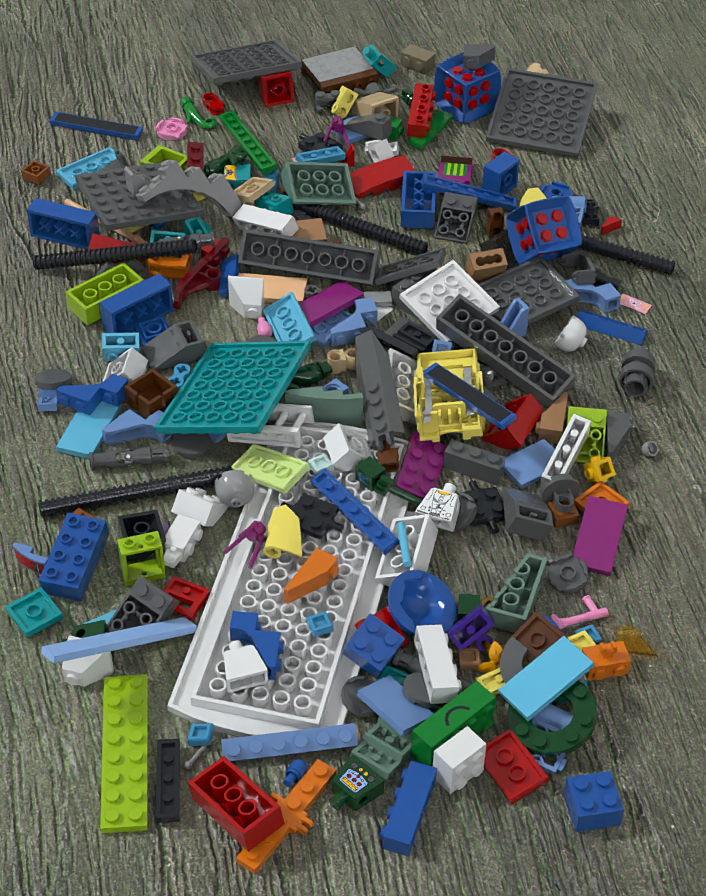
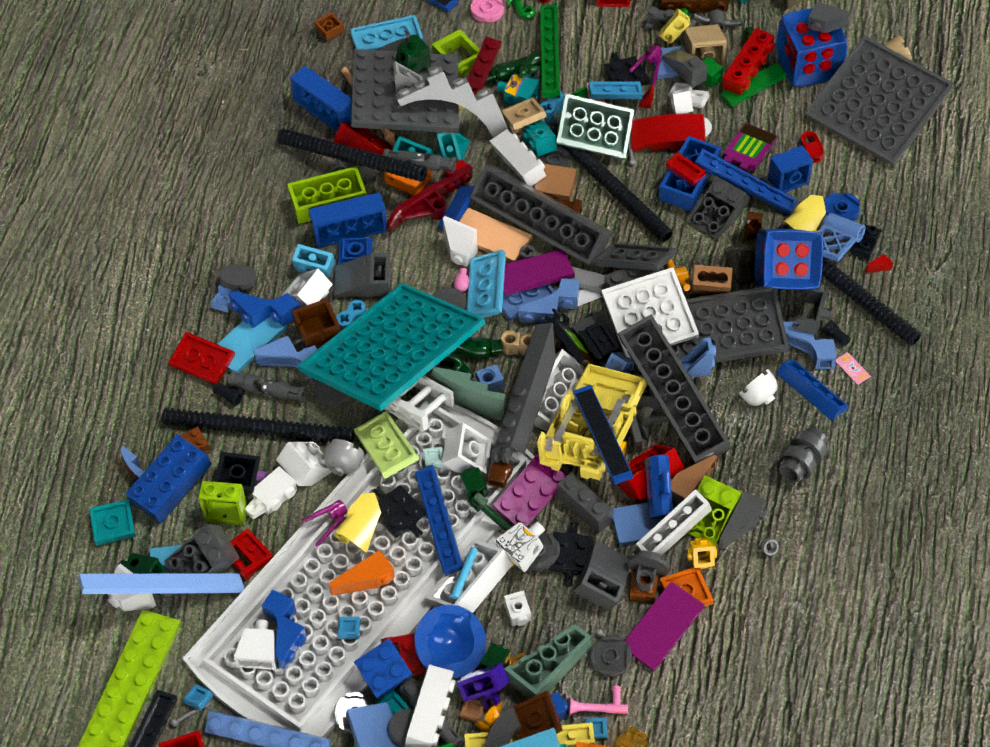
camera: 25 degrees right, 10 degrees up
(52, 452) = (201, 358): none -> red tile
(98, 474) = (231, 395): none -> black pin
(136, 159) = (414, 54): none -> dark green torso
(416, 192) = (685, 169): none -> red tile
(463, 563) = (517, 608): none -> white brick
(536, 426) = (658, 486): none -> blue piece

